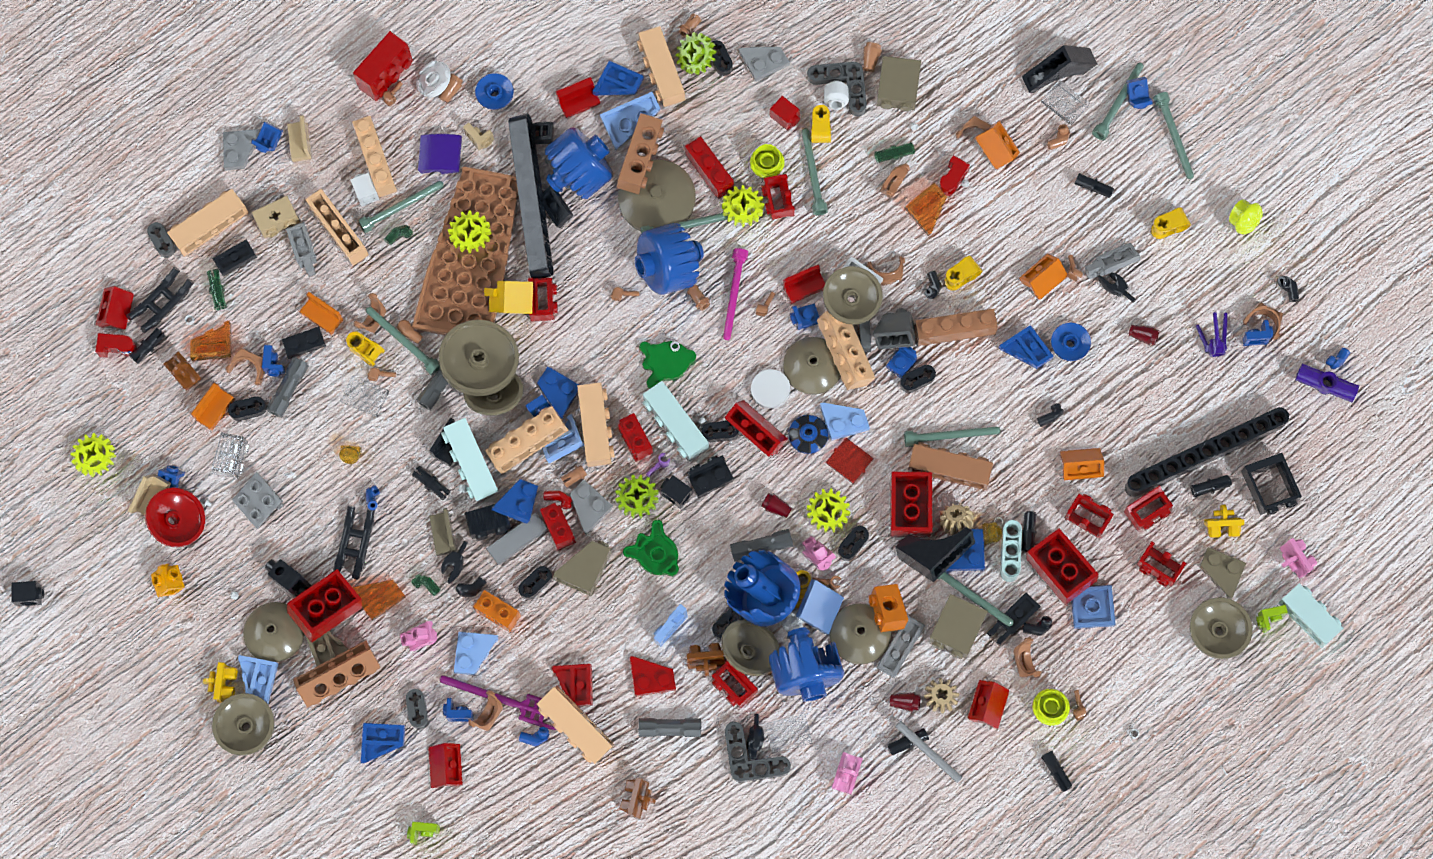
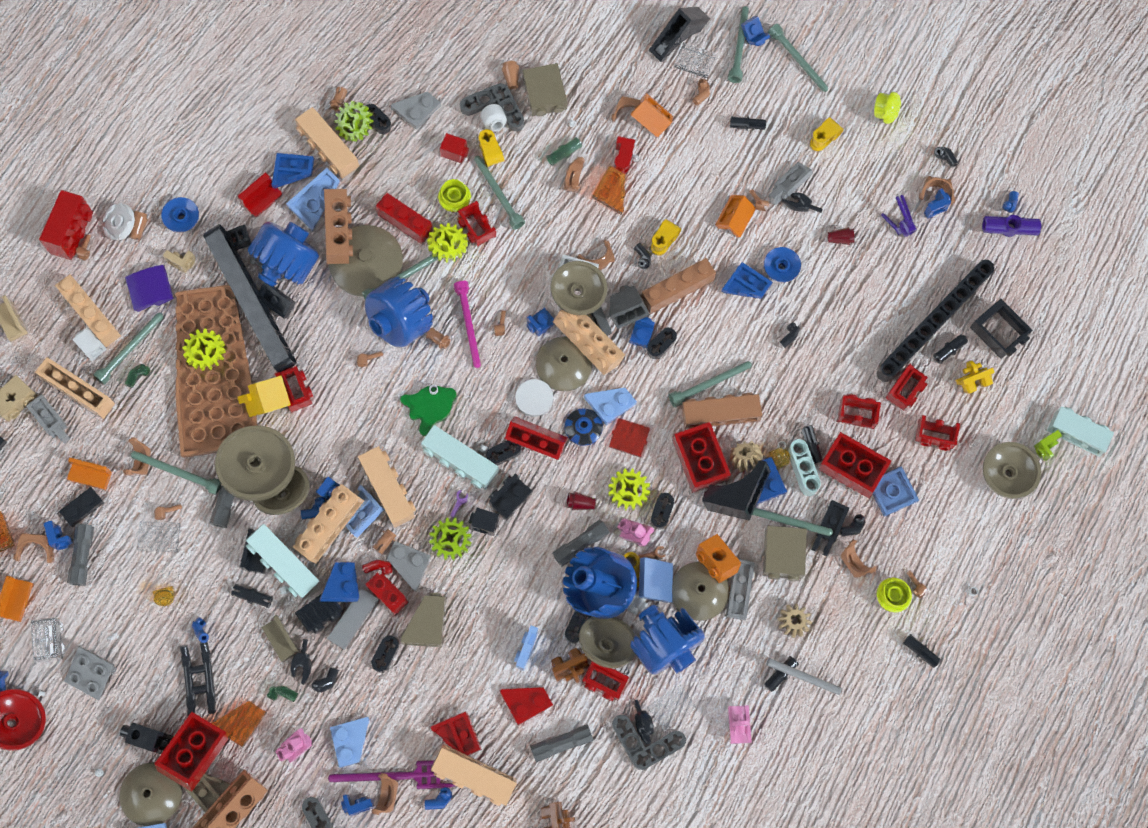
camera: 30 degrees left, 0 degrees up
(167, 580) = (27, 783): light orange brick -> none
(246, 404) = (45, 585): black beam -> none
(366, 350) = (145, 492): yellow piece -> none
(407, 330) = (176, 460): nougat arm -> none
(497, 611) = (359, 694): orange brick -> none
(514, 424) = (313, 512): none -> blue arm
(558, 390) = (340, 466): blue wing -> none
(634, 437) = (428, 485): red window -> none
(655, 552) = (485, 585): green tile -> none
(803, 284) = (528, 294): red panel -> none
(906, 701) = (765, 637): dark red cone -> none
(988, 703) = (837, 612): red panel -> none
(1082, 464) = (834, 368): orange panel -> none
(1223, 570) = (990, 418): dark tan wing -> none
(1296, 559) = (1047, 385): bright pink hips -> none

